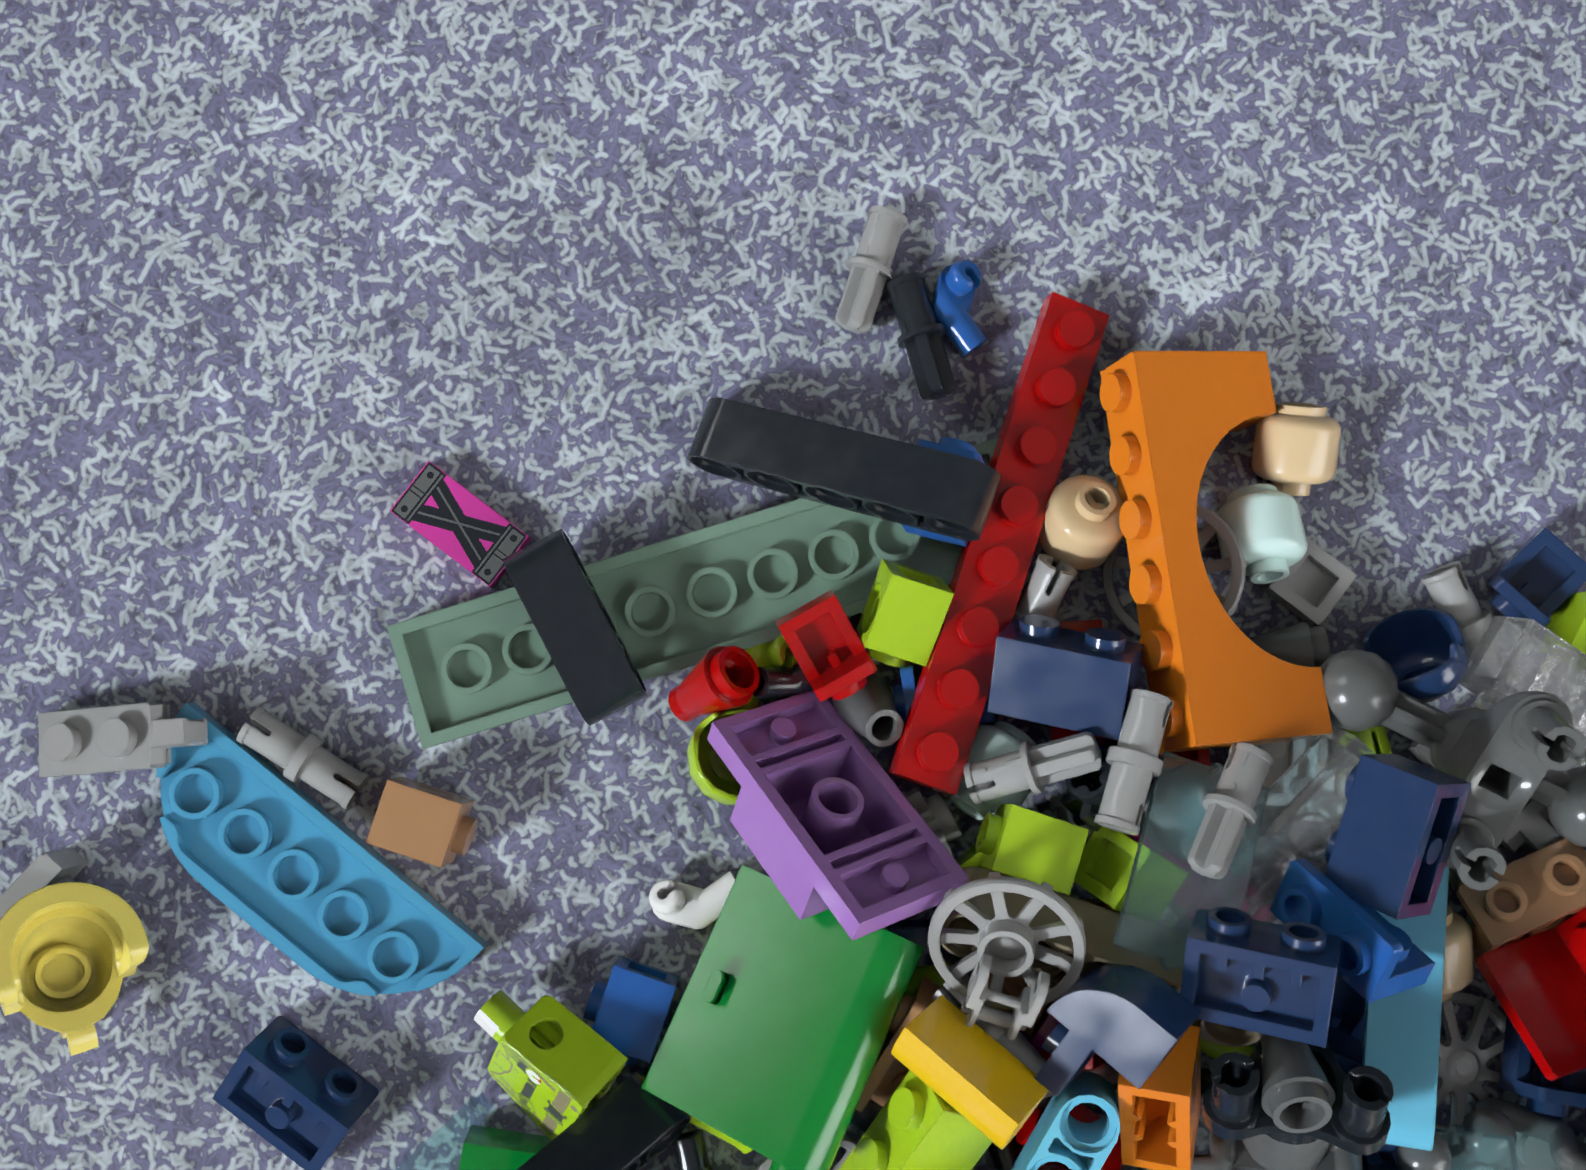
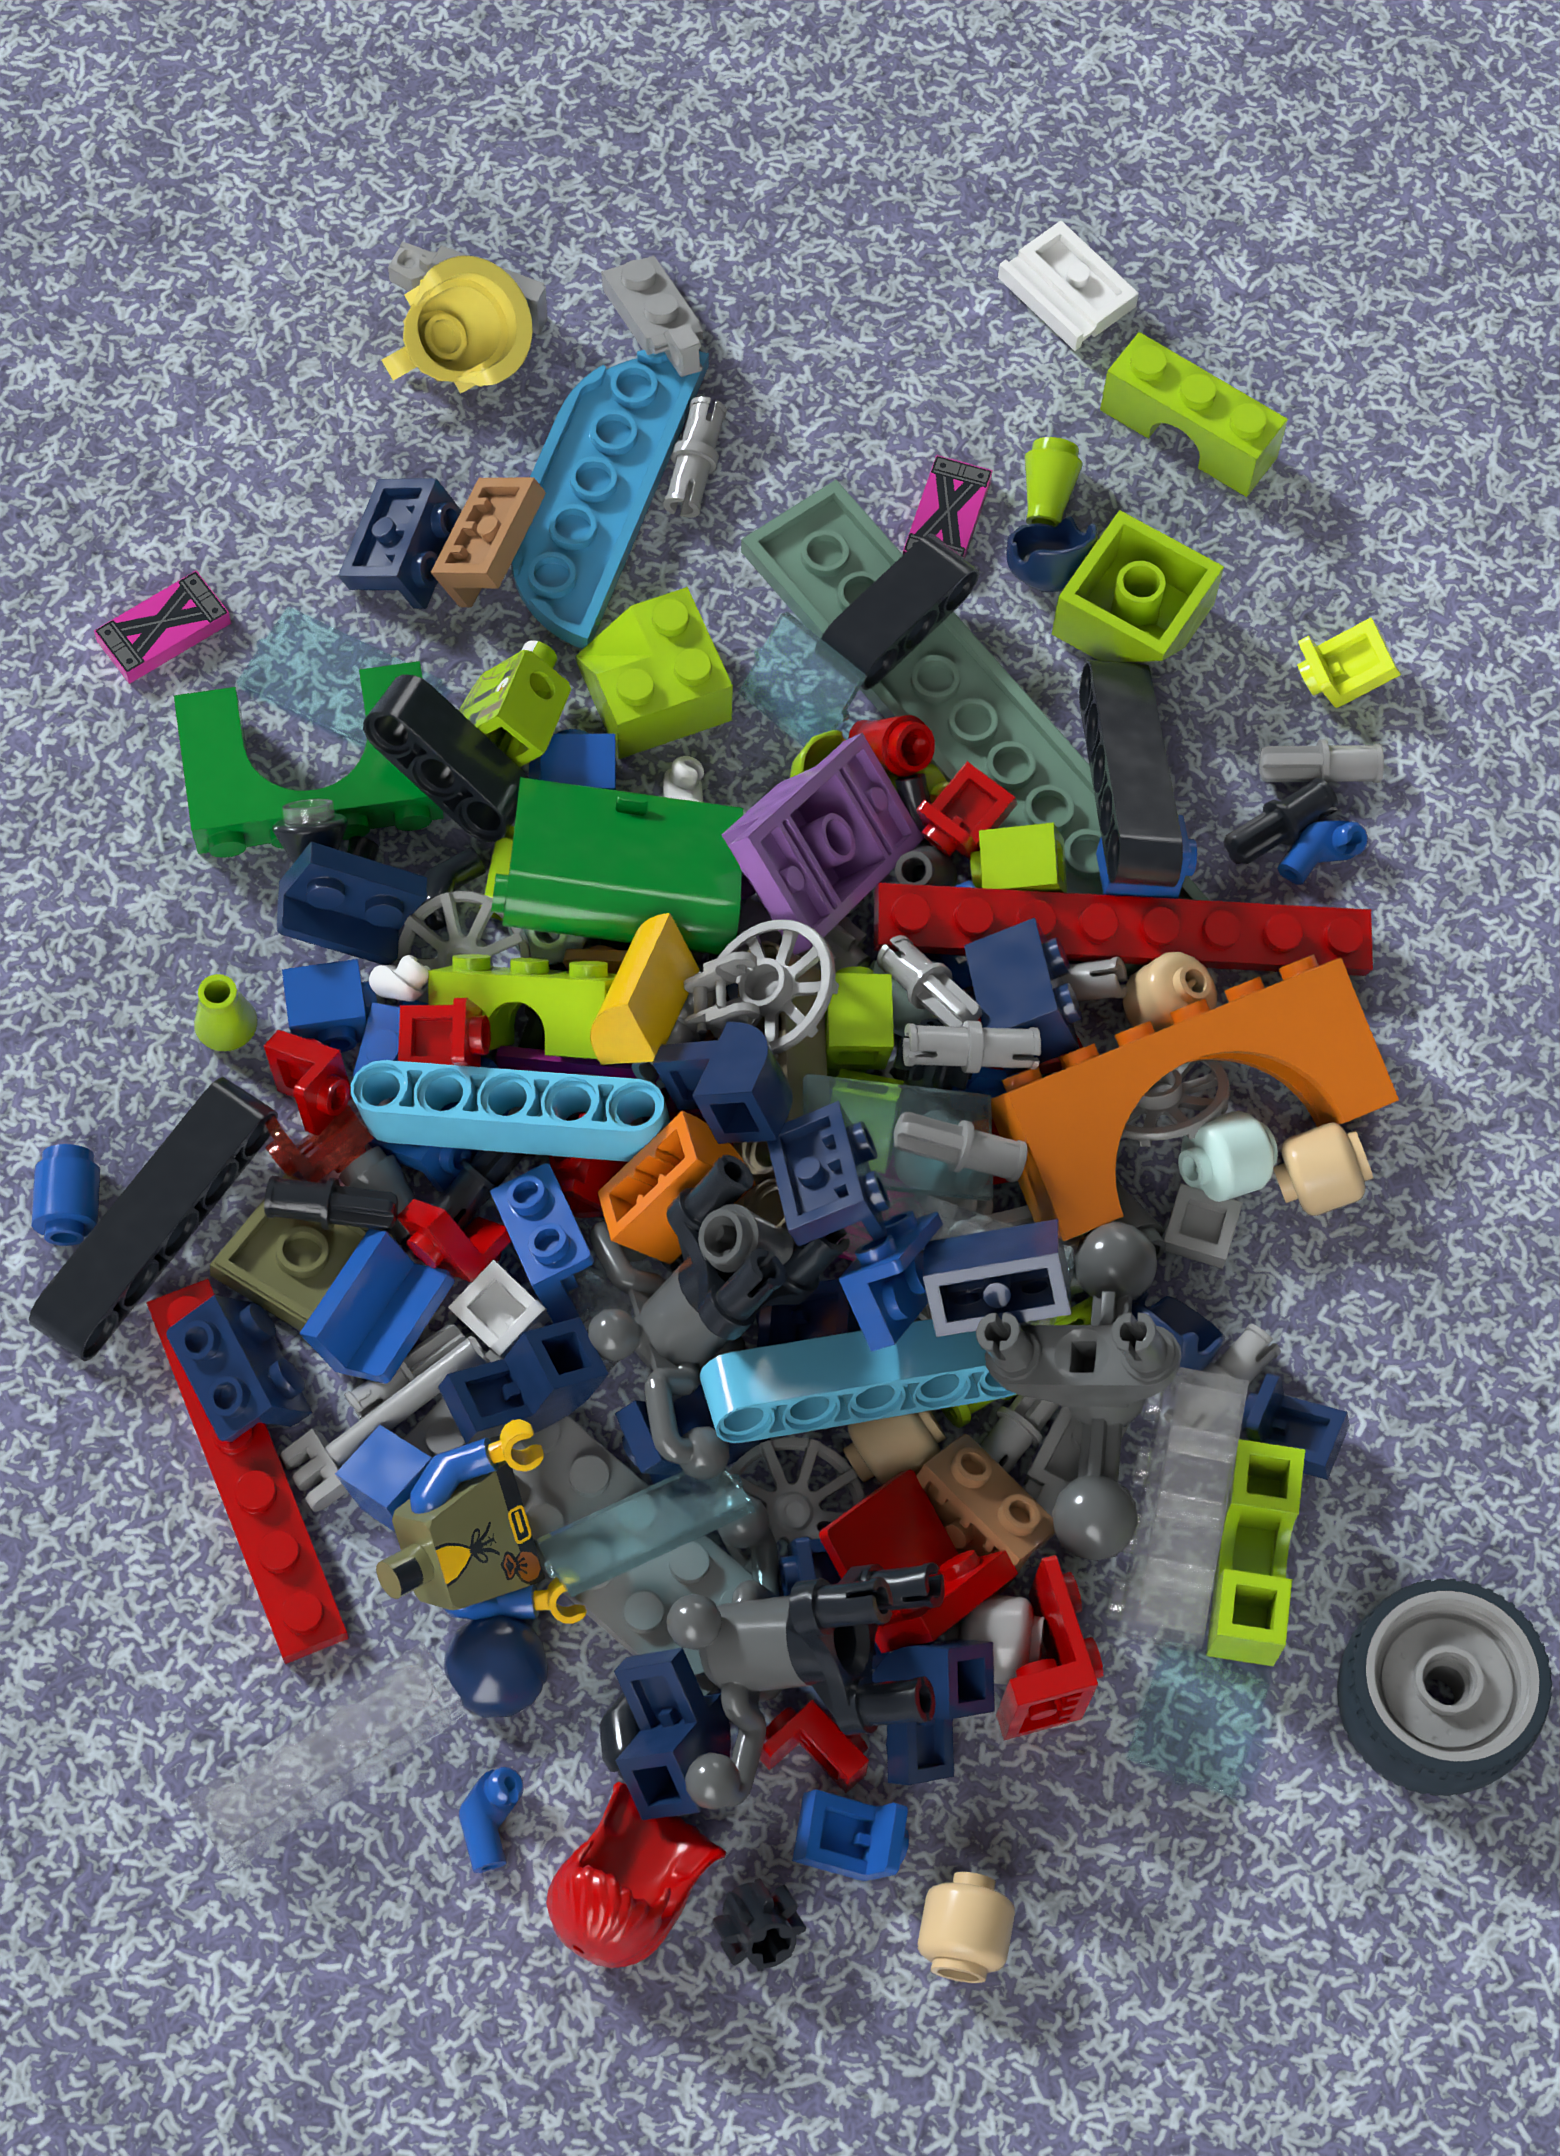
camera: 70 degrees right, 20 degrees down
(234, 297) = (1068, 285): none -> white plate
(330, 1015) = (487, 536): none -> medium nougat bracket
(422, 822) = (679, 551): medium nougat brick -> none
(462, 407) = (1050, 478): none -> lime cone
(468, 209) = (1231, 430): none -> lime arch
(548, 894) = (656, 674): none -> lime slope
(550, 440) = (1048, 555): none -> dark blue hair
(614, 749) = (801, 681): none -> clear light blue piece
(639, 376) = (1136, 595): none -> lime slope
(775, 199) = (1347, 663): none -> neon yellow bracket

